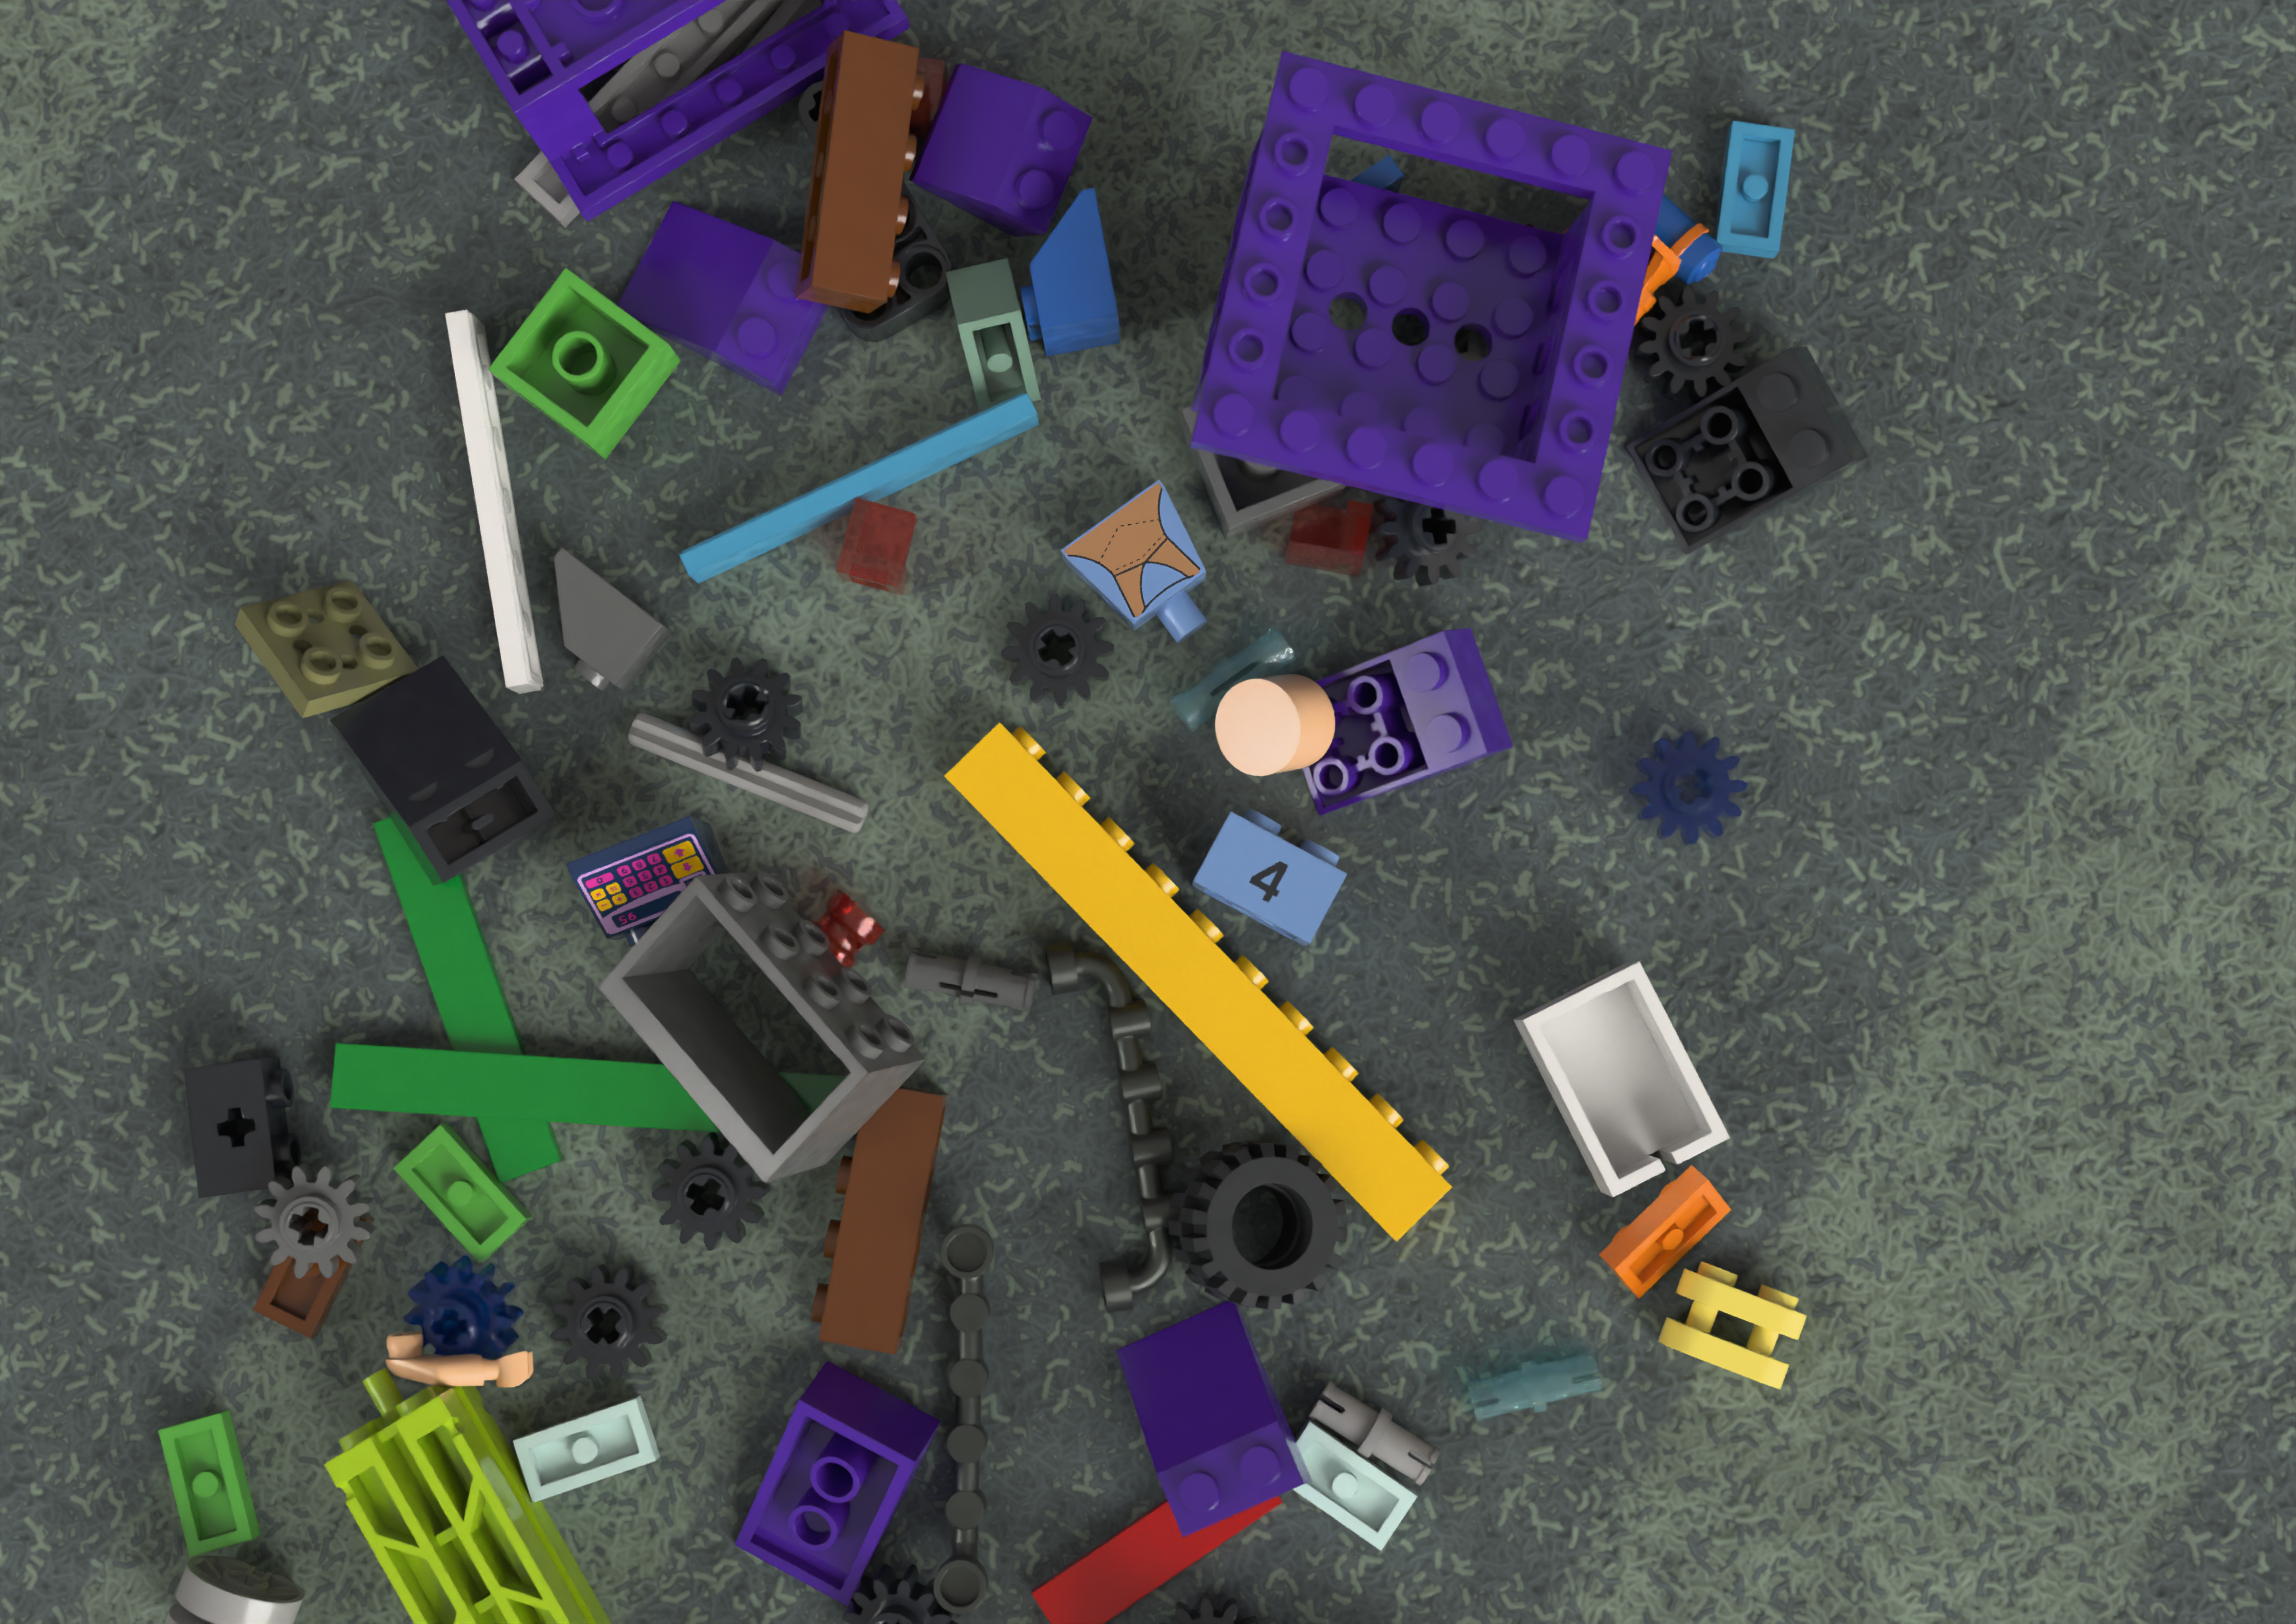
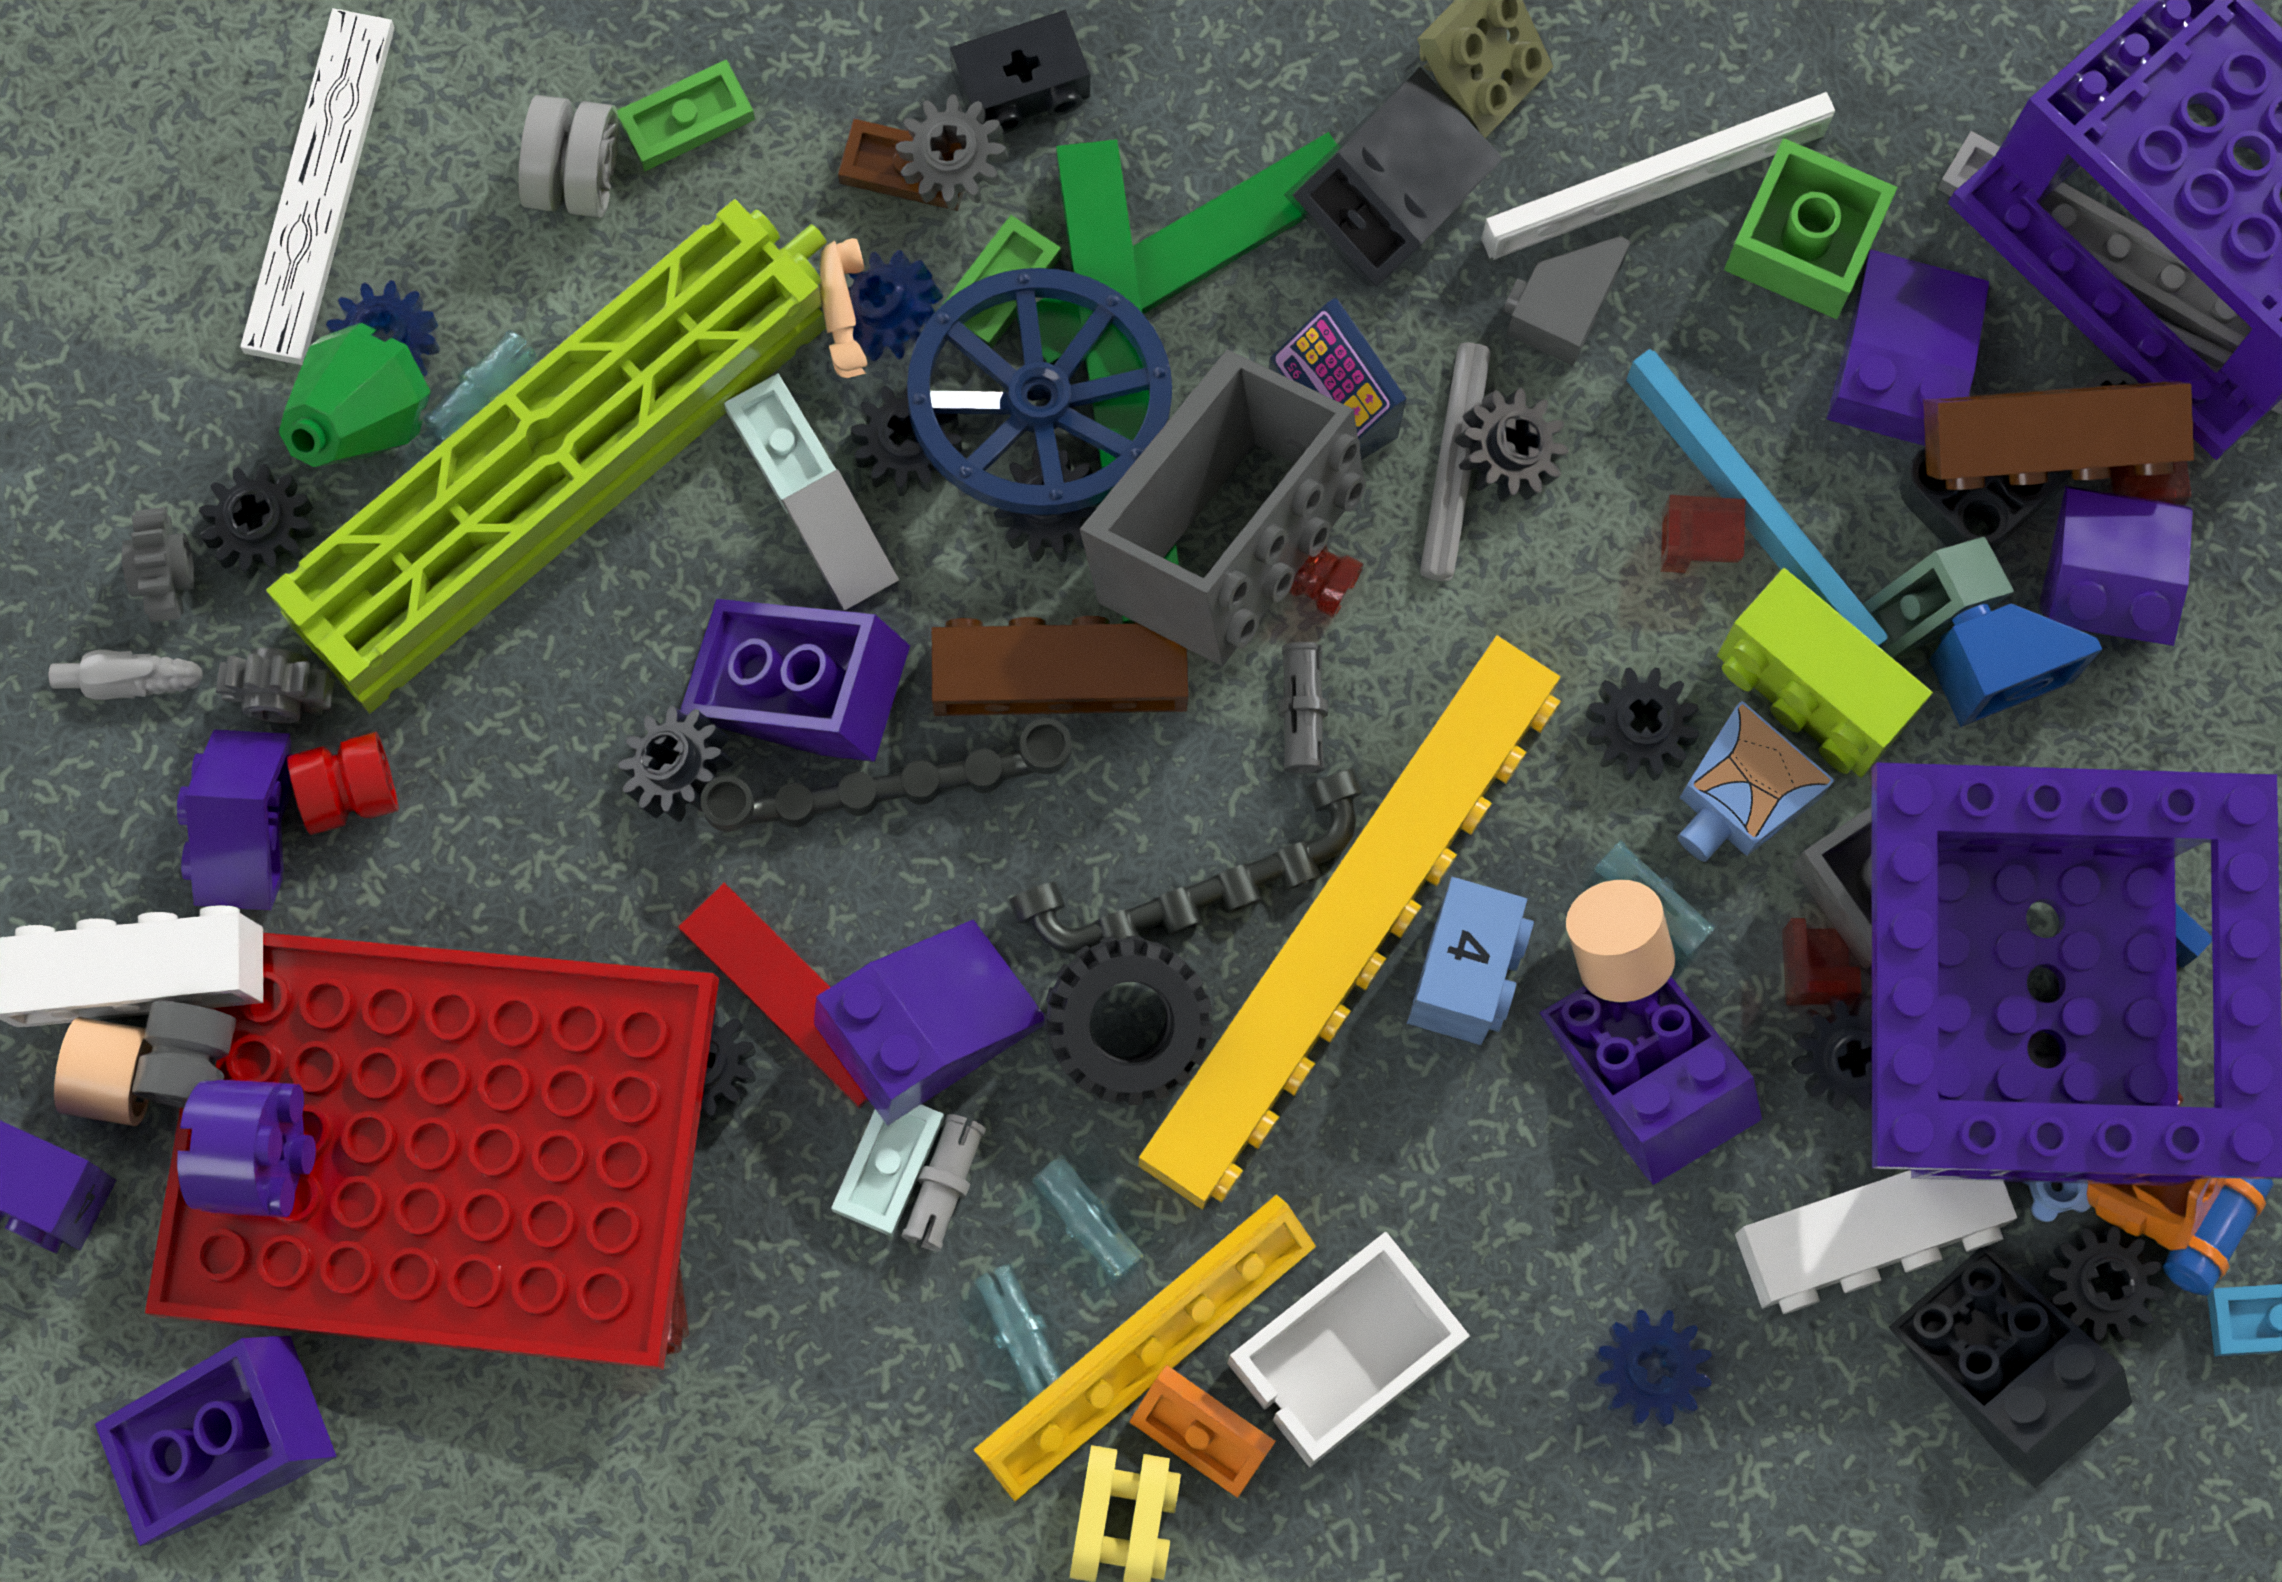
camera: 70 degrees right, 10 degrees down
(578, 1181) = (1034, 382): none -> dark blue wheel
(702, 1411) = (840, 540): none -> light grey tile
(1053, 465) = (1821, 674): none -> lime brick
(1437, 1298) = (1088, 1218): none -> clear light blue pin
(1574, 1270) = (1143, 1345): none -> yellow tile
(1607, 576) = (1867, 1230): none -> white brick

